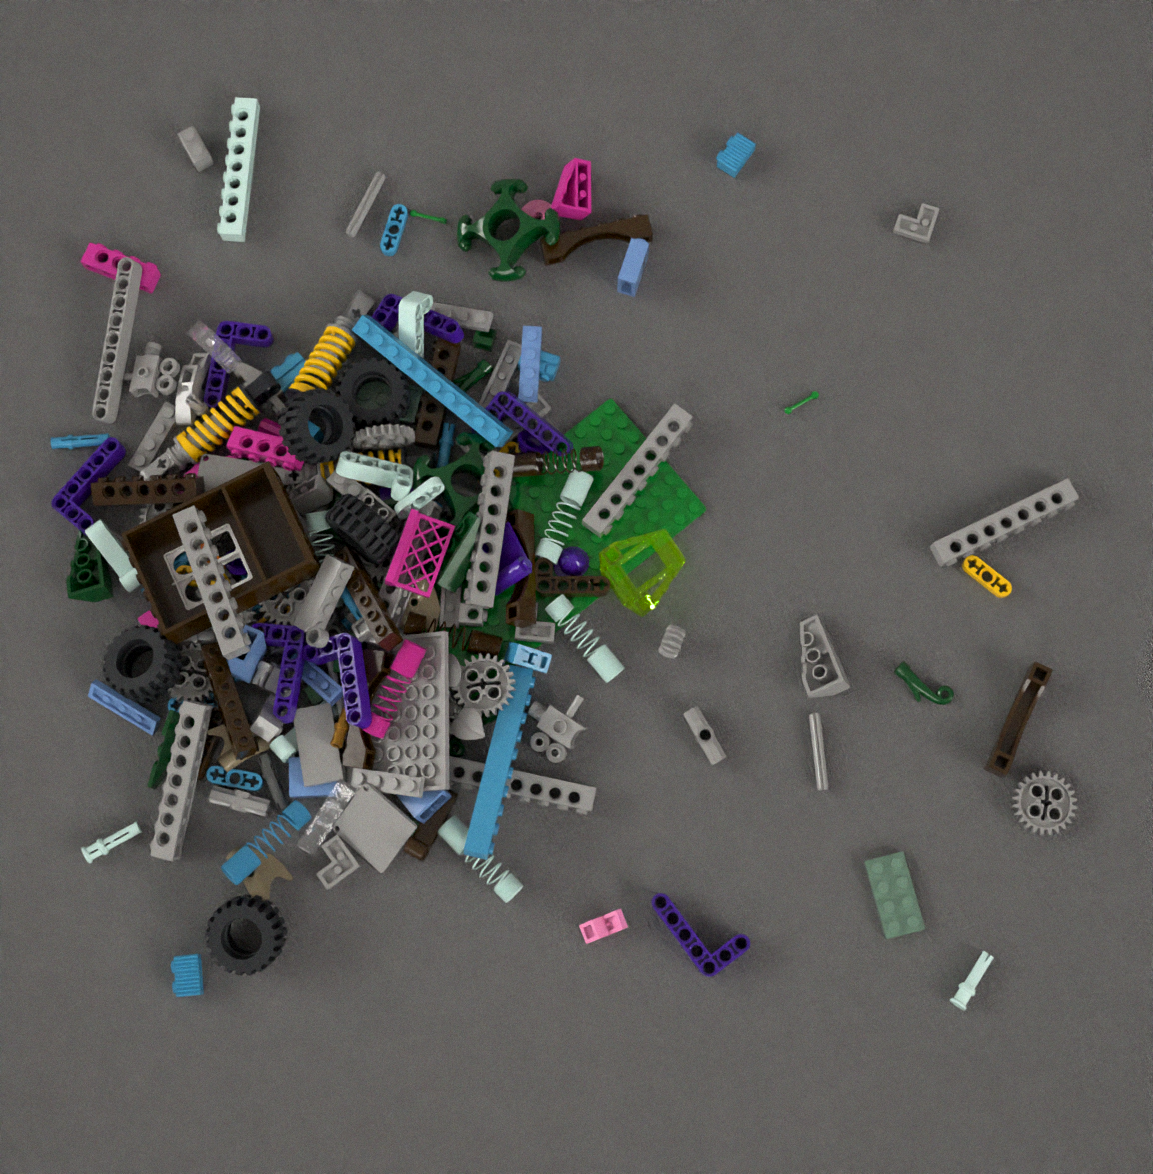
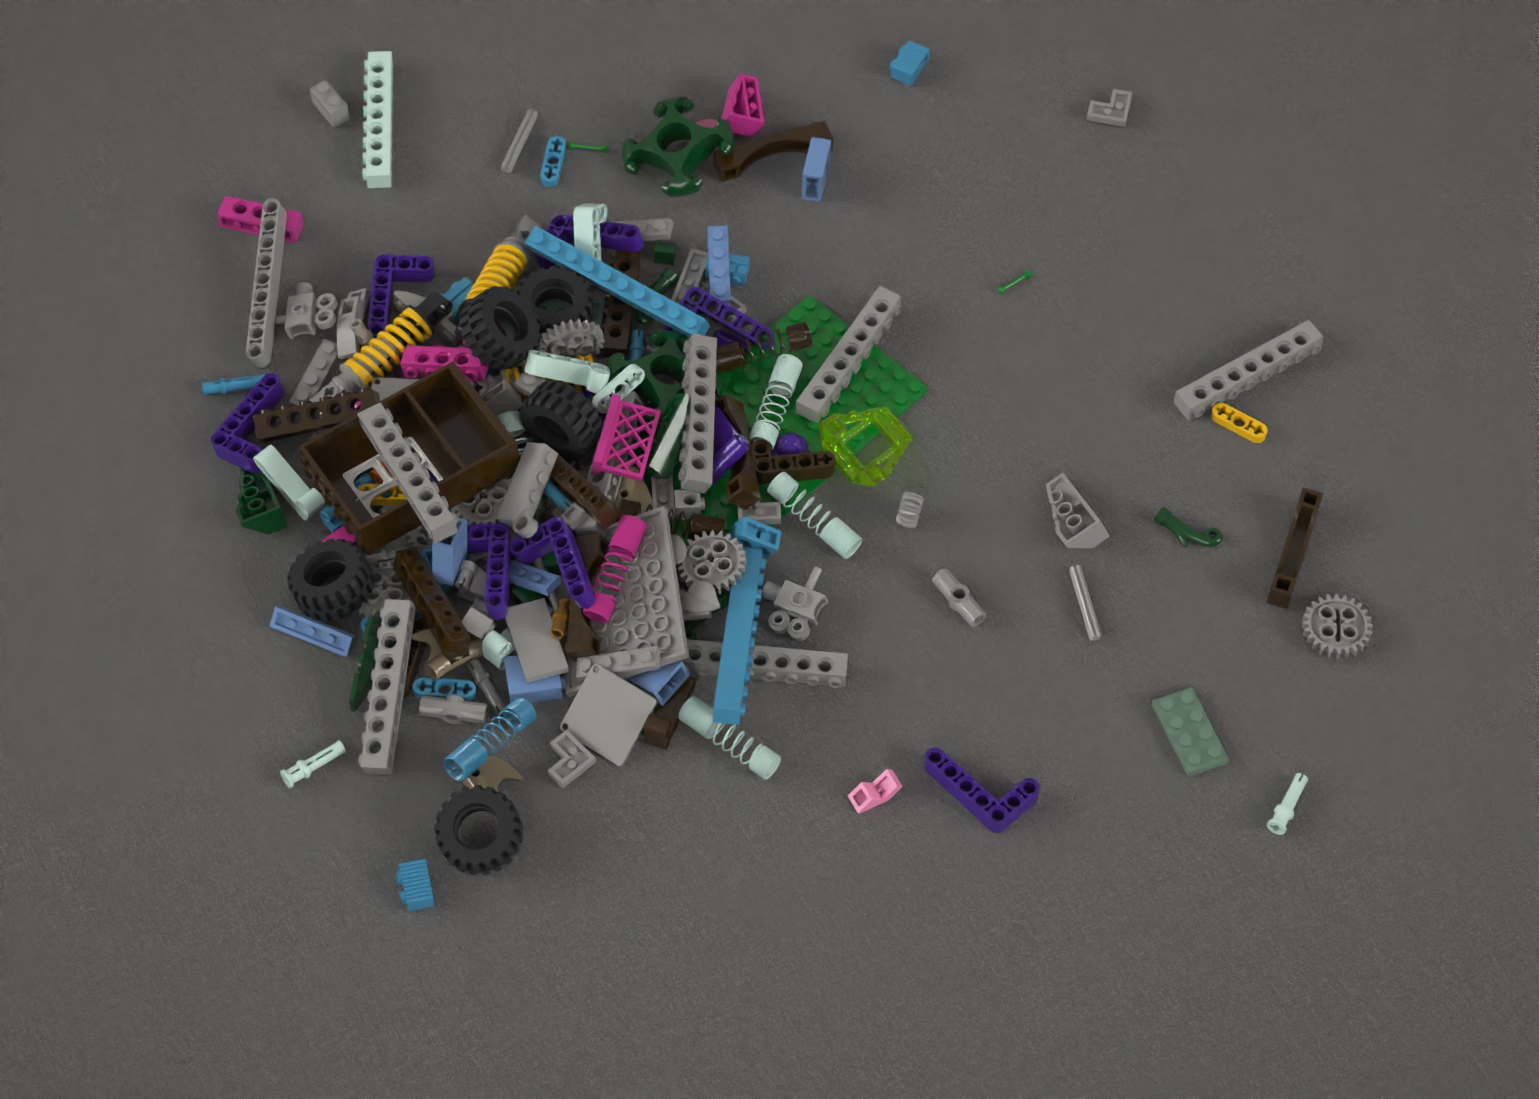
camera: 10 degrees left, 20 degrees down
(214, 346) = (373, 276): clear slope -> none
(326, 817) = (552, 711): clear slope -> none

